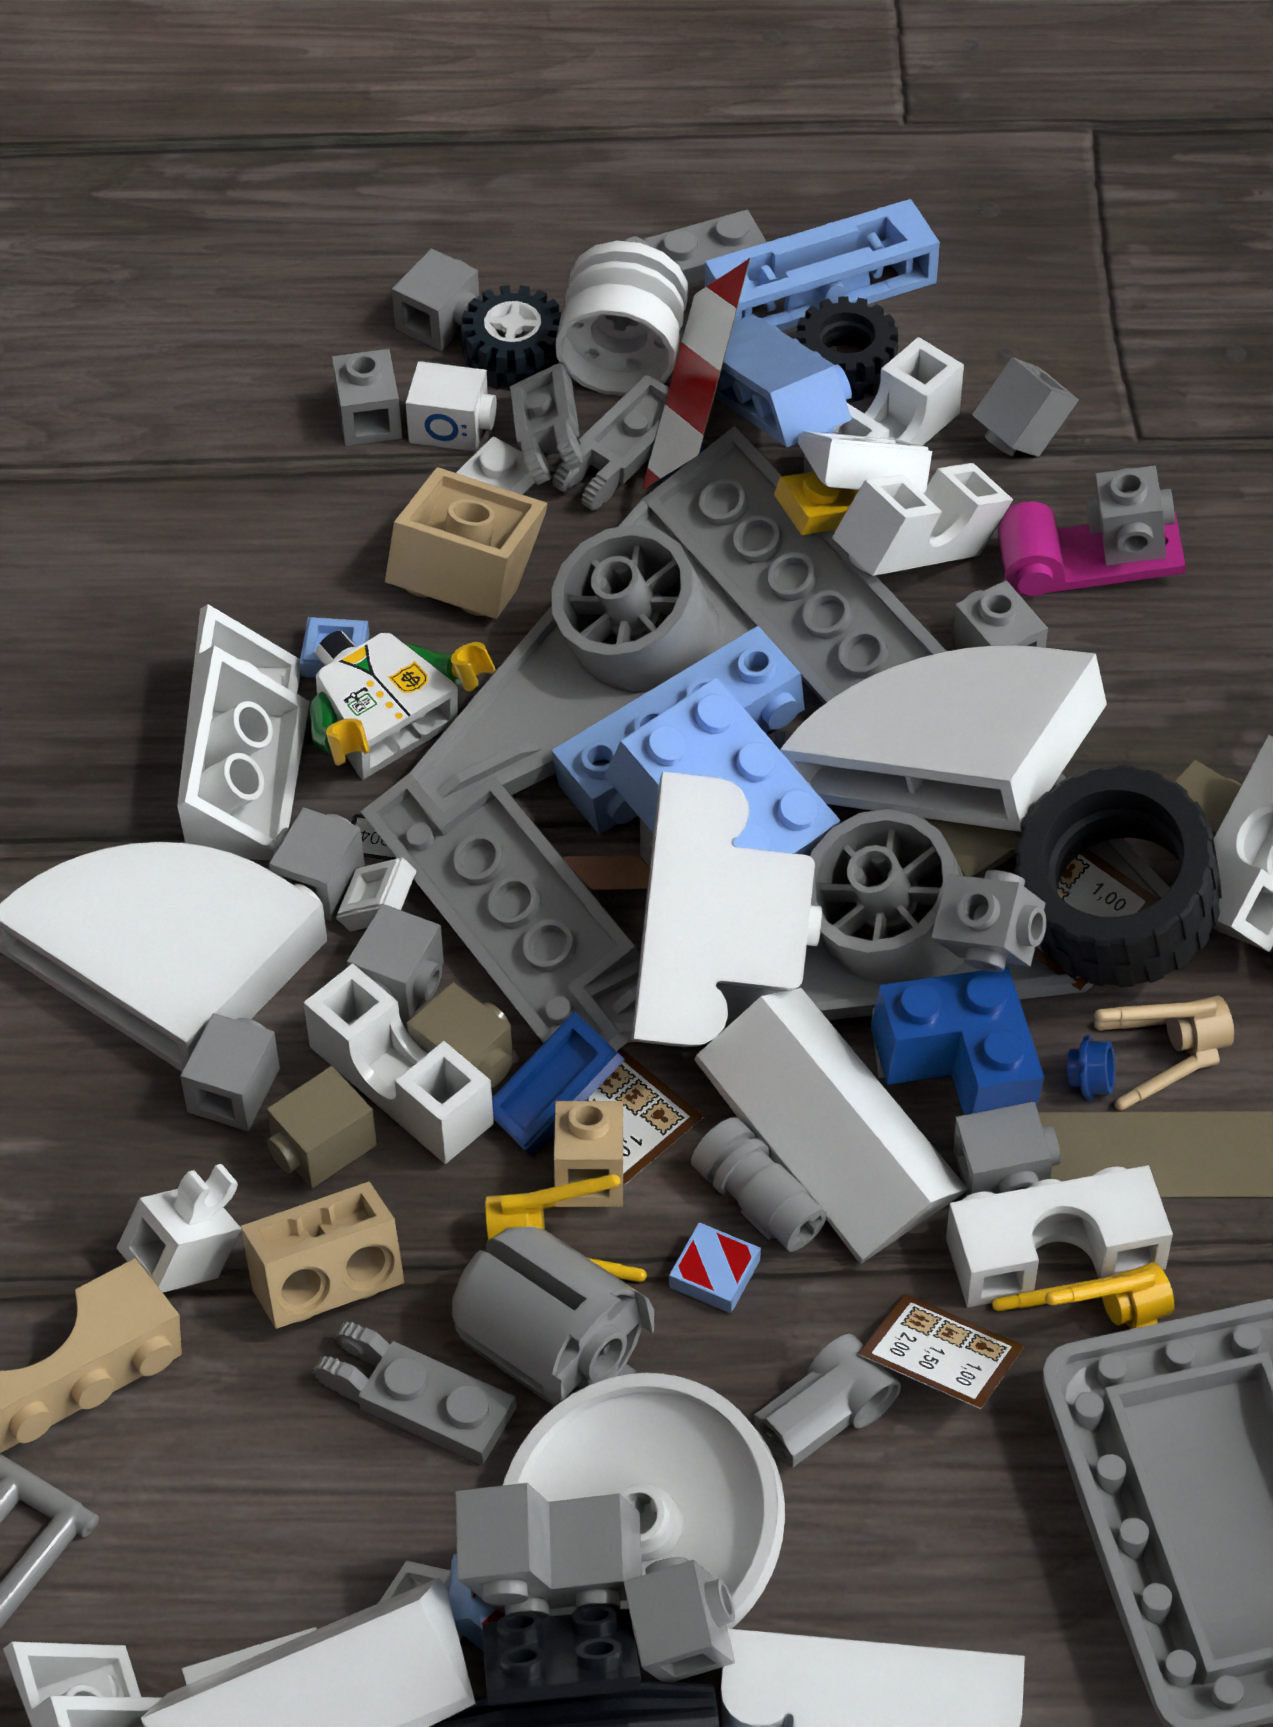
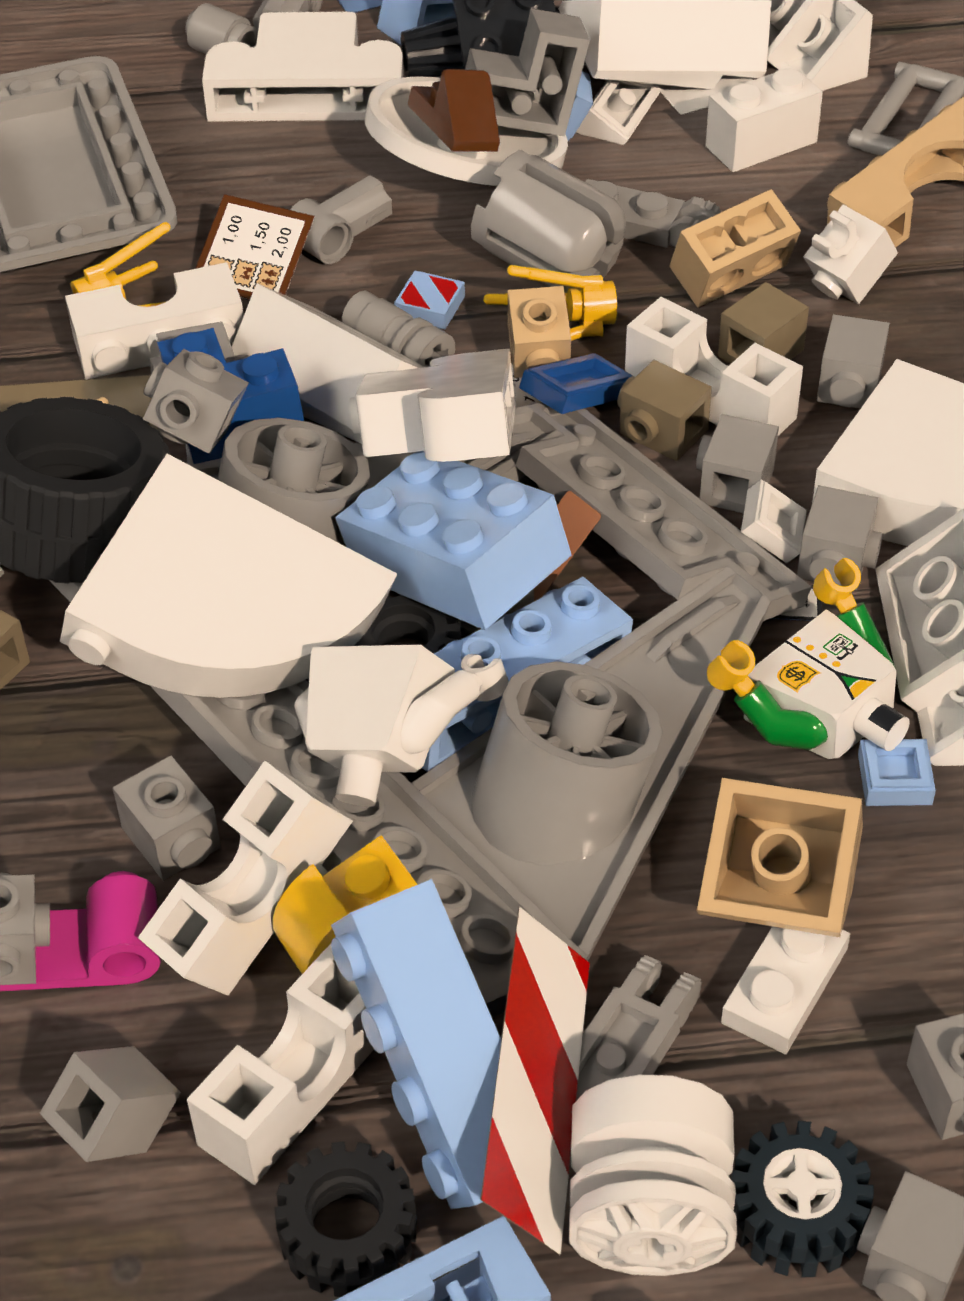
camera: 175 degrees right, 5 degrees down
(212, 1528) = (763, 118): none -> white brick
(449, 406) = (854, 1068): white brick -> none
(546, 420) = (724, 1028): light grey hinge -> none
(659, 1472) = (459, 110): none -> reddish brown slope
(680, 1619) = (428, 49): light grey brick -> none
(800, 621) = (385, 709): none -> white torso
(851, 459) = (308, 900): white slope -> none

